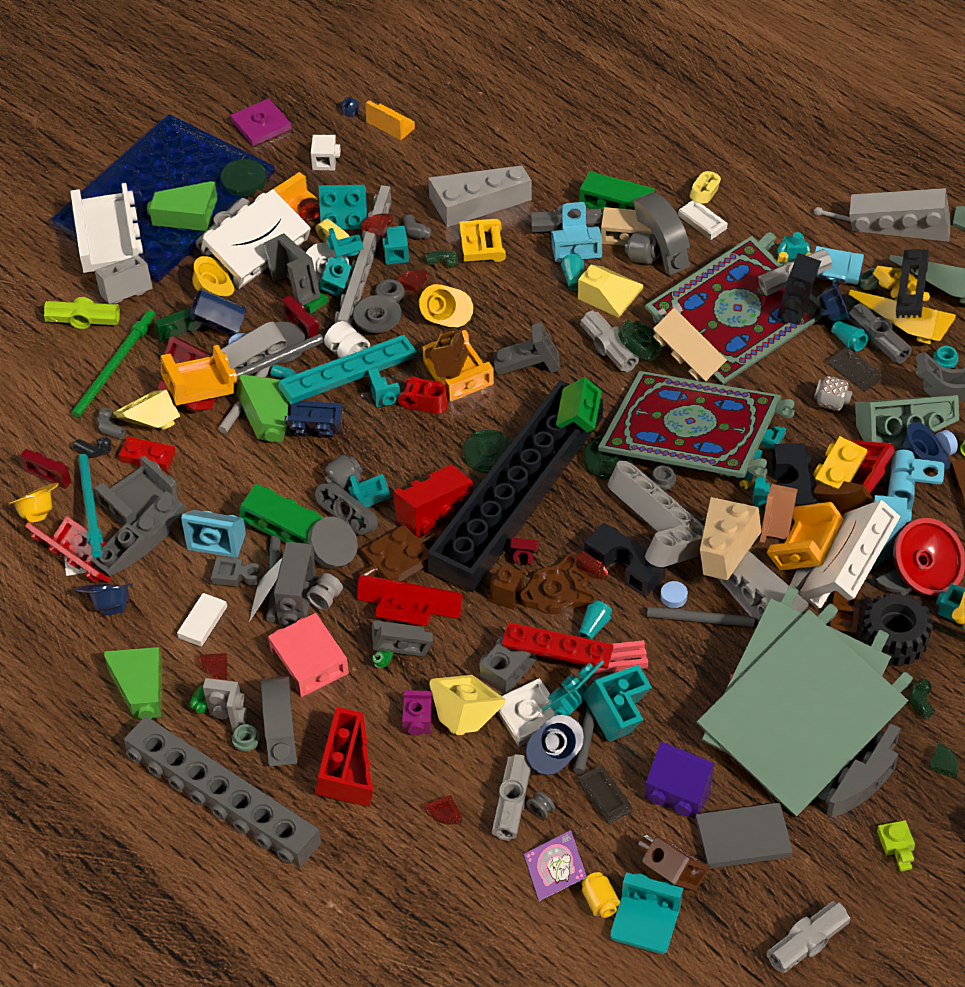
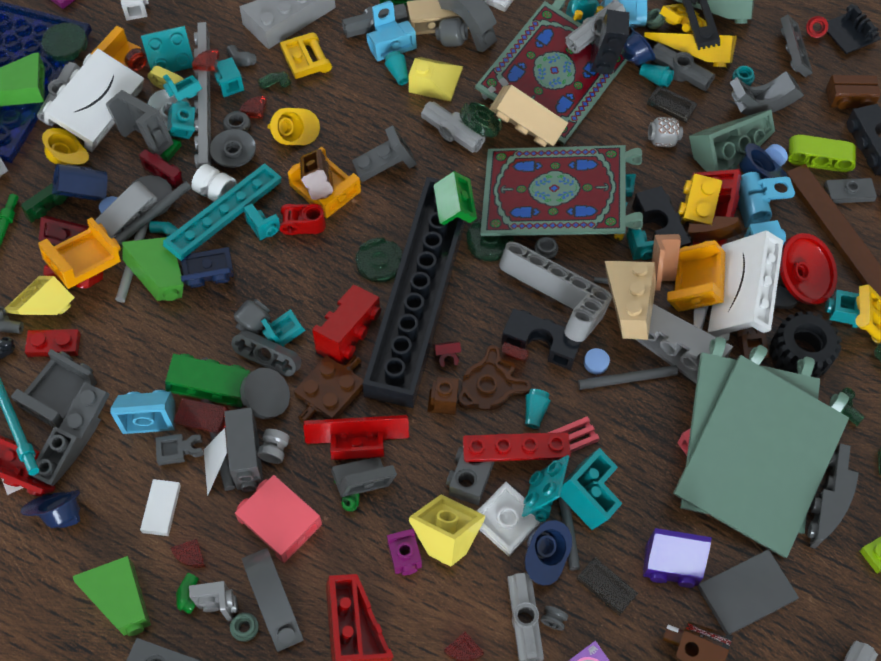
camera: 20 degrees left, 10 degrees up
(262, 547) = (201, 415): none -> clear red tile

